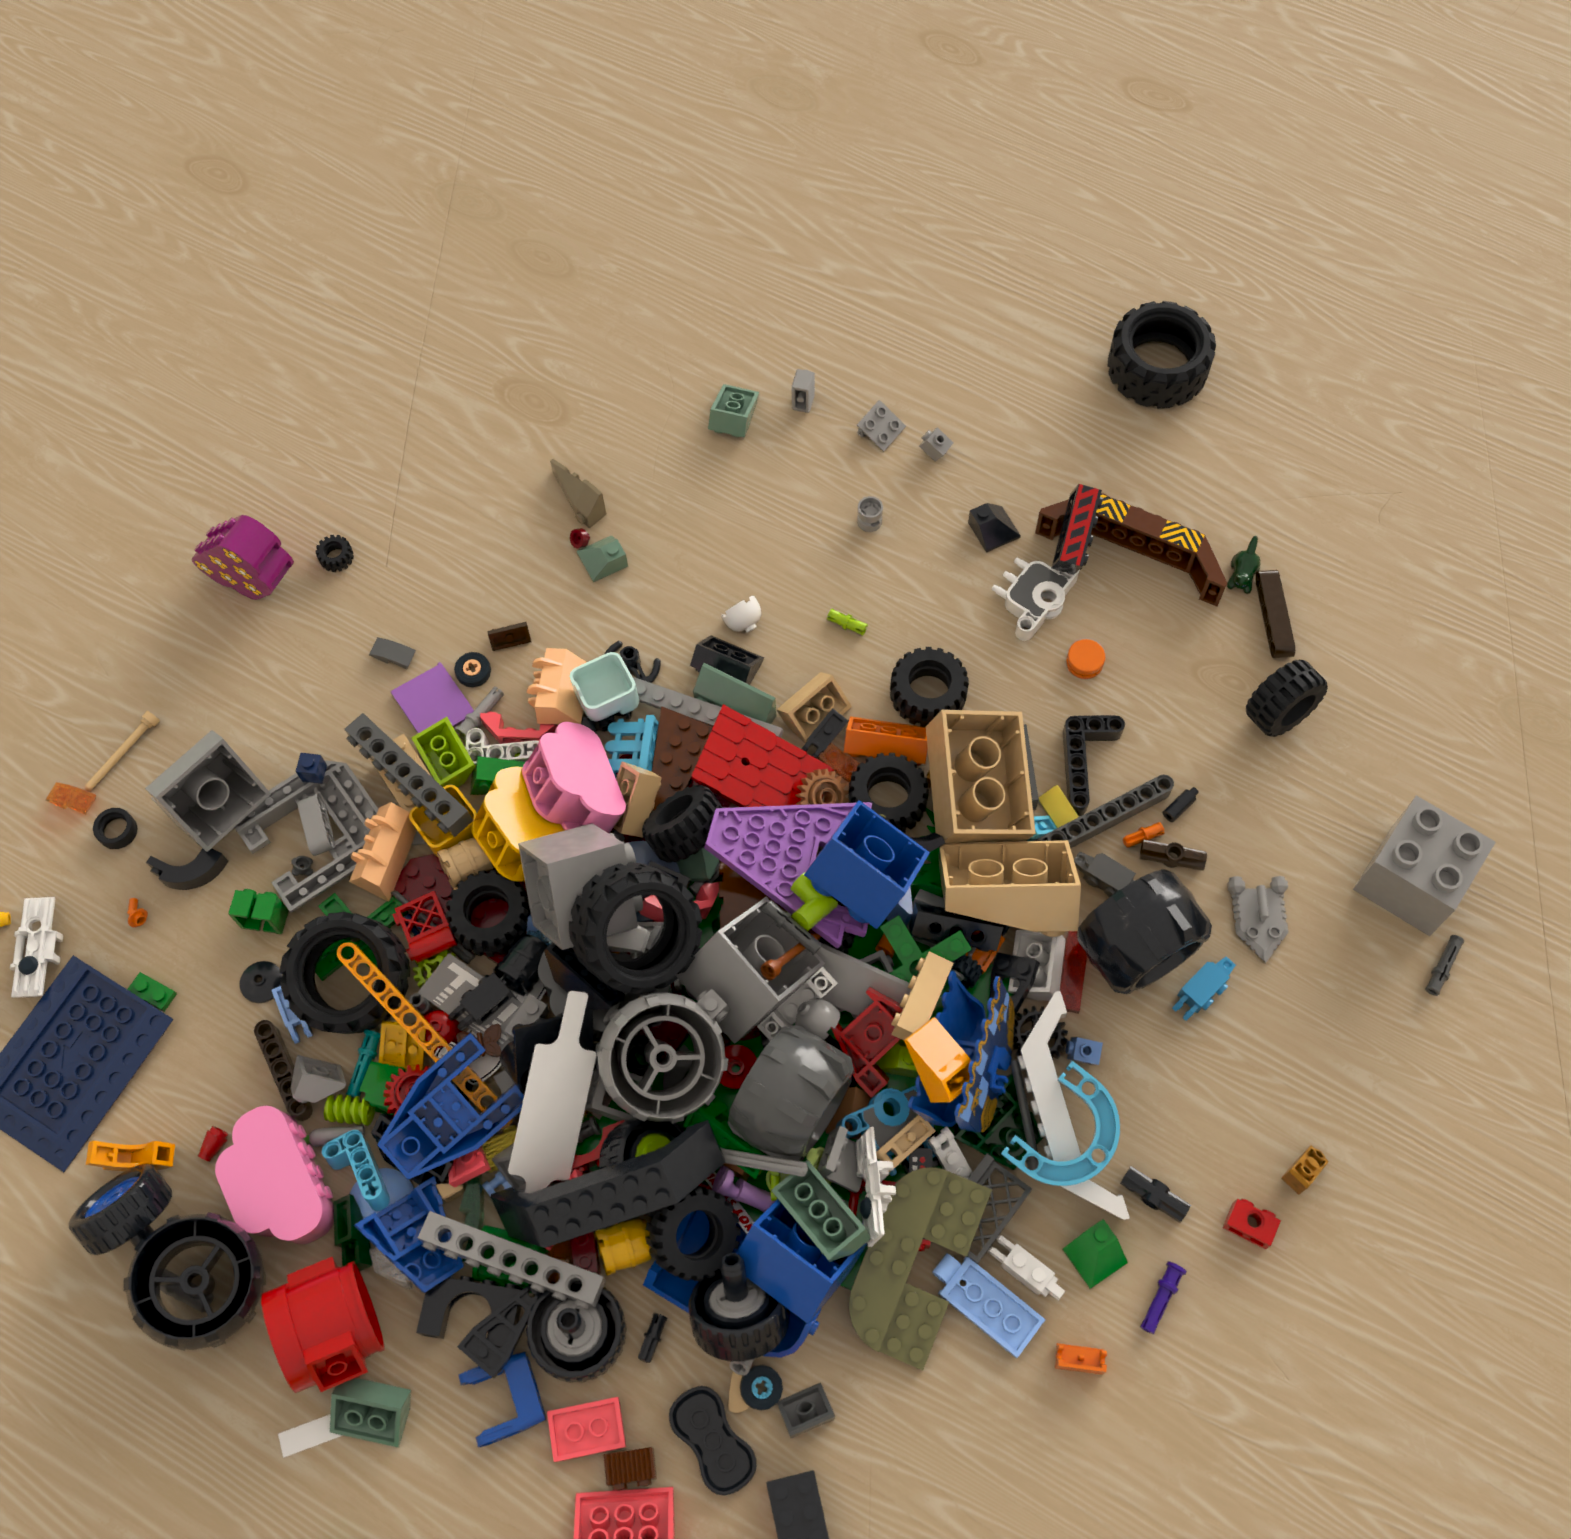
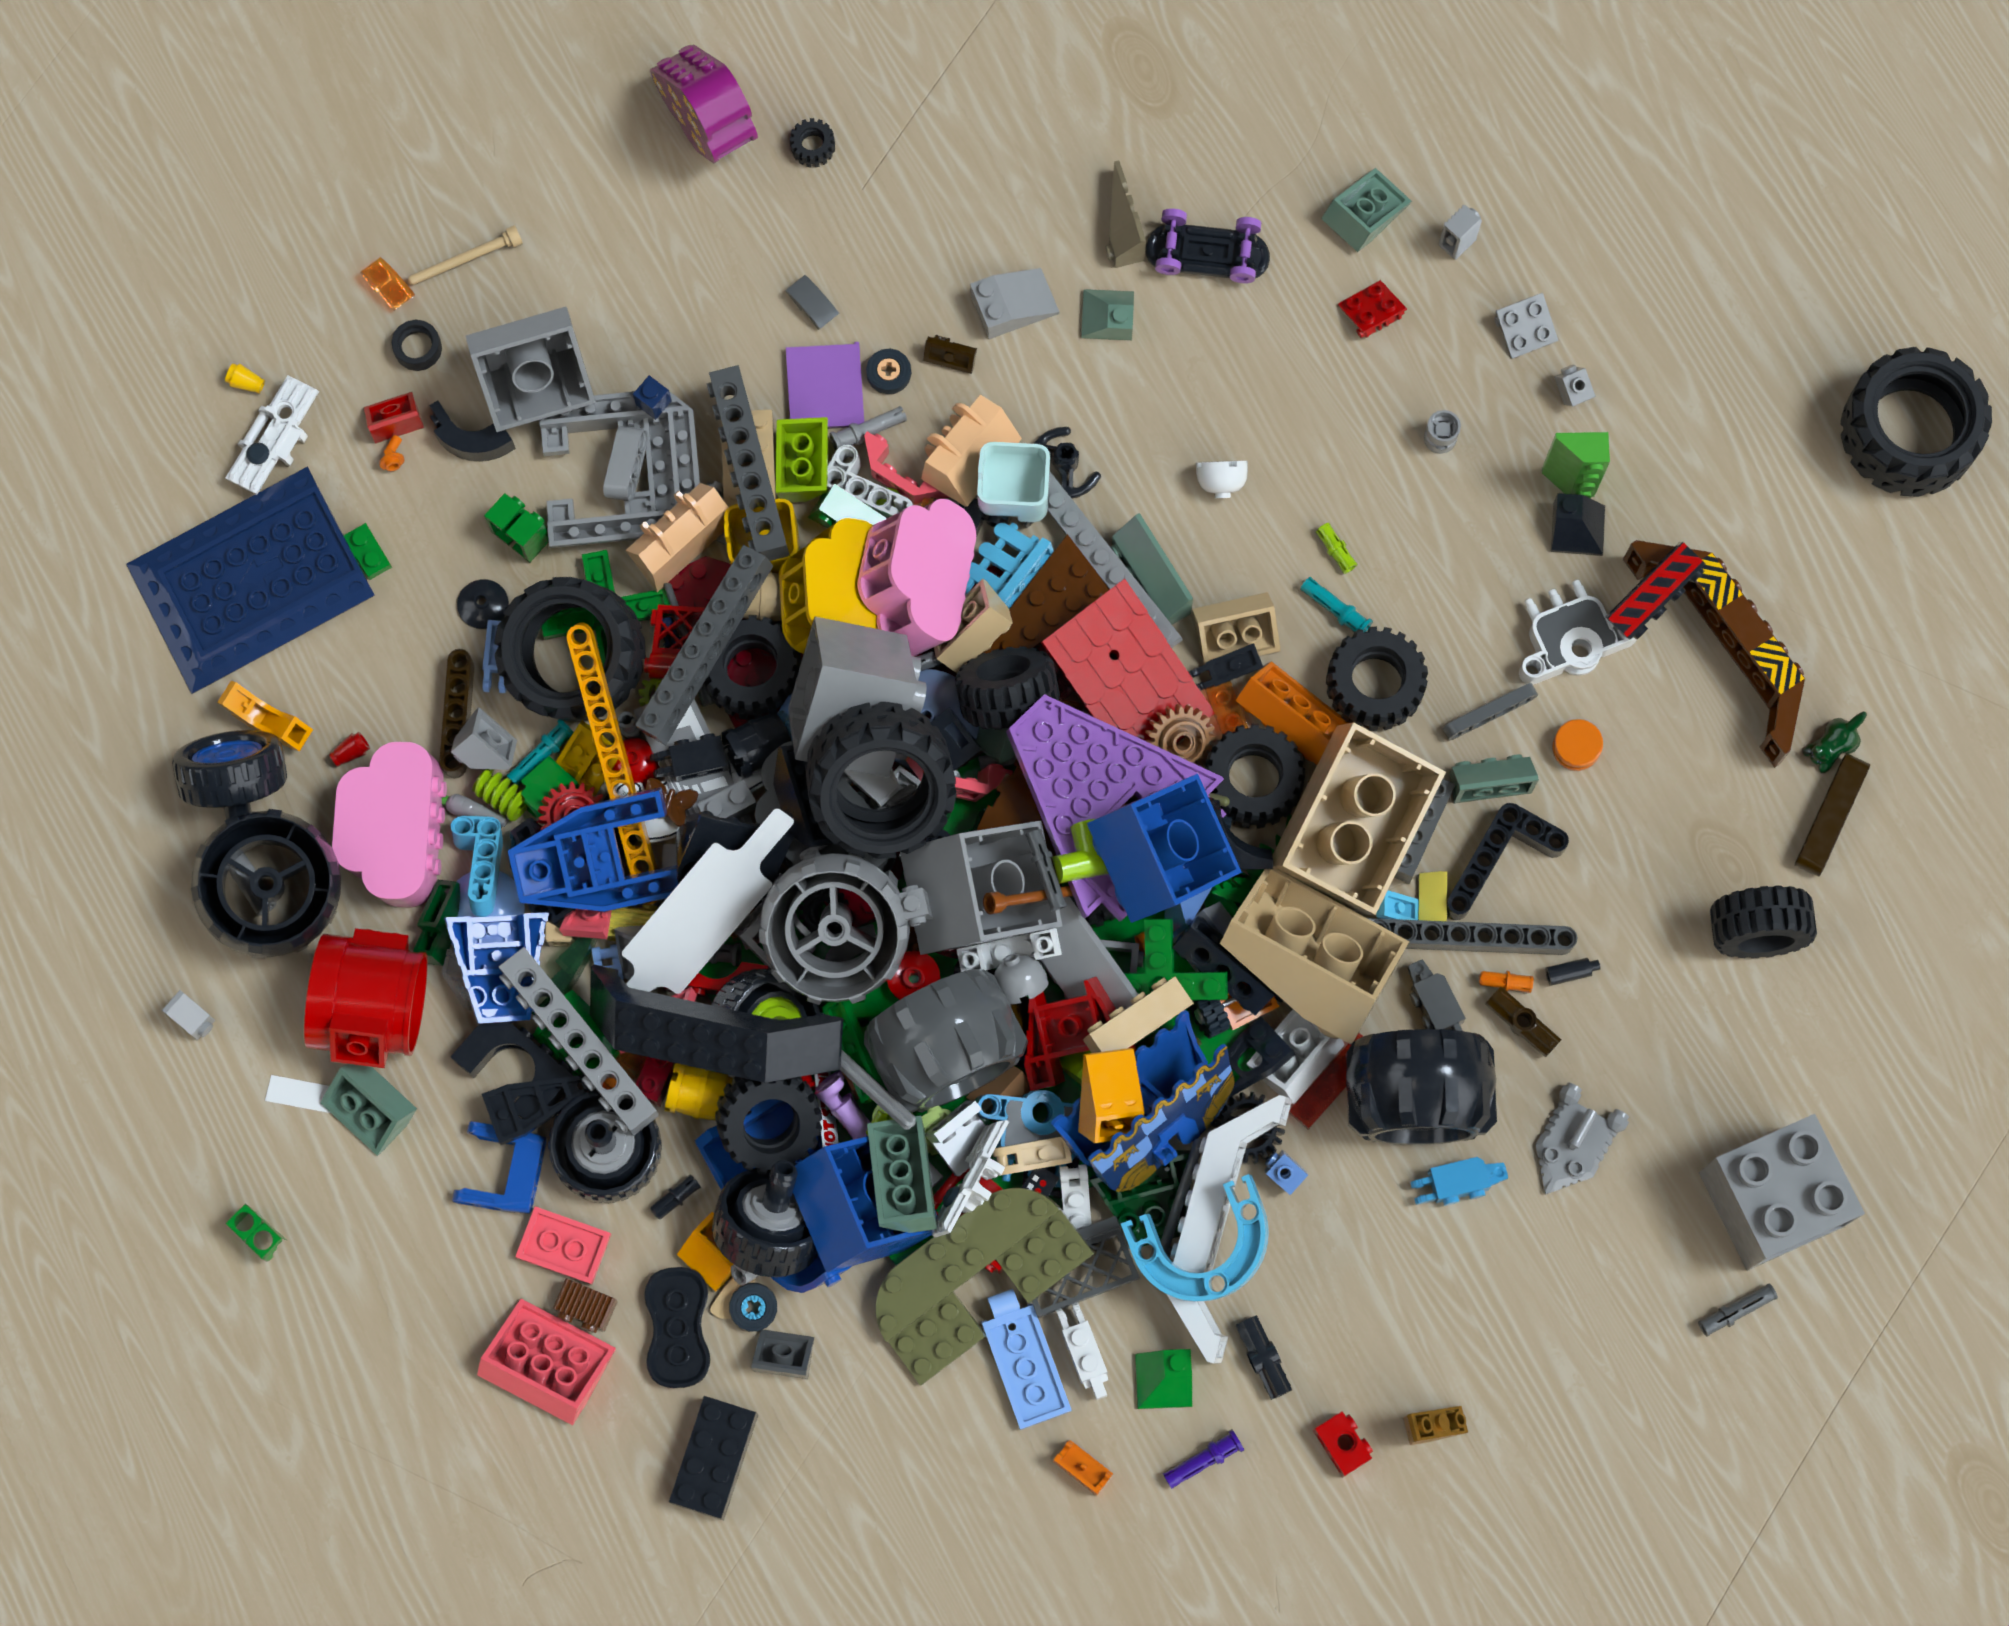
camera: 30 degrees right, 10 degrees up
(124, 885) = (393, 417): none -> red slope
(184, 1425) = (189, 1015): none -> light grey slope
(302, 861) = (591, 493): dark grey plate -> none
(446, 913) = (704, 645): none -> dark grey brick
(531, 582) = (1012, 301): none -> light grey slope
(579, 538) = (1094, 276): dark red tile -> none
(645, 485) = (1208, 250): none -> black piece
(703, 1369) = (704, 1256): none -> light orange slope
(726, 658) = (1173, 519): black slope -> none
(776, 466) = (1373, 308): none -> red hinge
(880, 659) = (1345, 613): none -> teal pin
(972, 480) = (1577, 462): none -> bright green slope
(1015, 669) = (1490, 711): none -> dark grey beam
(1049, 707) = (1493, 778): none -> sand green slope

